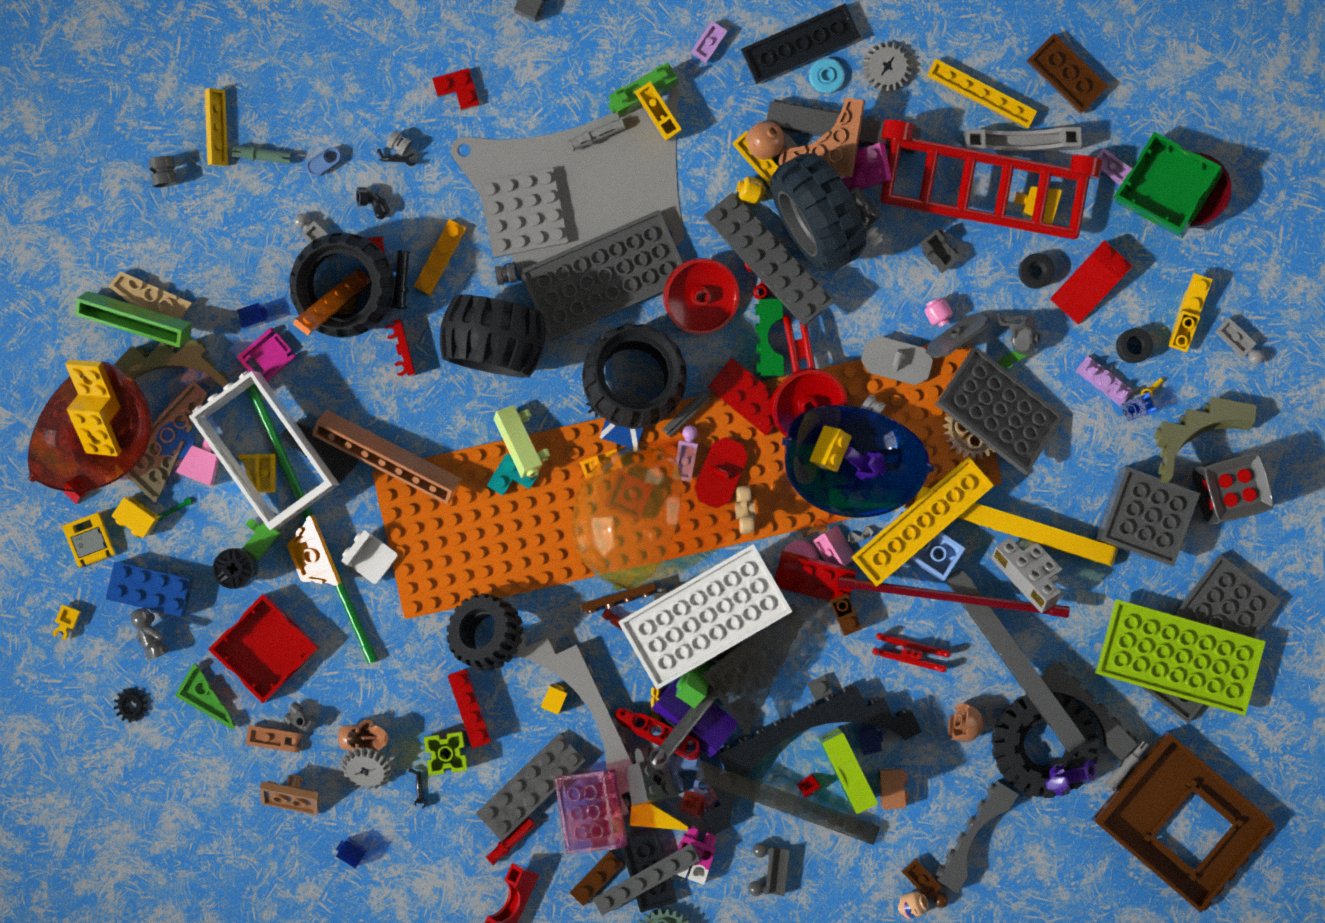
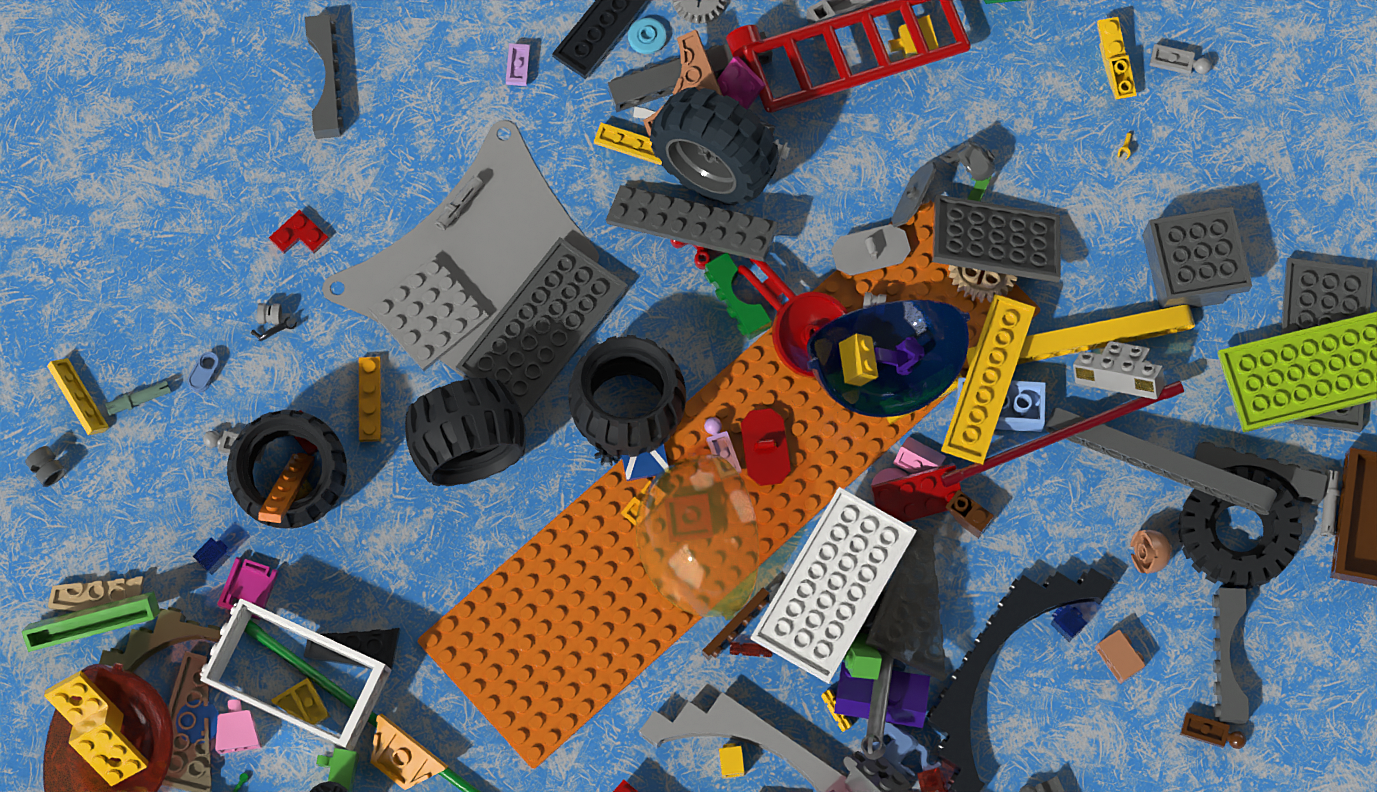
camera: 25 degrees left, 15 degrees down
(369, 556) = (461, 725): white bracket -> none
(379, 204) = (262, 382): black arm -> none
(386, 457) = (424, 614): nougat brick -> none
(401, 290) = (353, 461): black pin -> none
(402, 348) = (381, 503): red plate -> none
(463, 628) = (598, 724): black tyre -> none
(505, 274) = (444, 376): flat silver wheel -> none
(506, 474) = (557, 559): teal plate -> none
(518, 442) = (548, 526): yellowish green brick -> none
(625, 100) = (480, 138): bright green brick -> none
(630, 720) = (845, 728): red piece -> none
(658, 111) = (507, 148): yellow slope -> none
(686, 414) = (698, 410): dark grey axle -> none
(701, 296) = (647, 293): red dish -> none
(744, 395) = (745, 362): red plate -> none
(745, 509) = (810, 464): tan gear -> none
(751, 189) = (637, 172): yellow head -> none
(765, 139) = (624, 119): nougat cylinder -> none
(787, 802) = (1025, 728): clear smoke plate -> none
(808, 785) = (1037, 702): red slope -> none
(819, 525) = (892, 443): clear orange hand -> none
(819, 687) = (987, 600): dark grey plate -> none
(847, 770) = (1065, 655): lime tile -> none
(867, 533) = (941, 427): light grey piece -> none
(911, 652) = (1055, 515): red piece -> none
(913, 905) = (1212, 759): light nougat head -> none
(938, 251) = (848, 132): dark grey cylinder -> none
(938, 312) = (882, 185): bright pink head -> none
(1036, 281) = (953, 89): black tyre -> none
(1061, 779) = (1277, 546): dark purple piece -> none
(1091, 282) = (1008, 82): red slope -> none
(1104, 380) = (1076, 164): lavender plate -> none
(1138, 407) = (1124, 167): clear blue brick -> none
(1143, 337) = (1089, 105): black tyre -> none
(1215, 415) = (1198, 137): olive arch -> none
(1233, 488) = (1260, 186): dark grey piece -> none

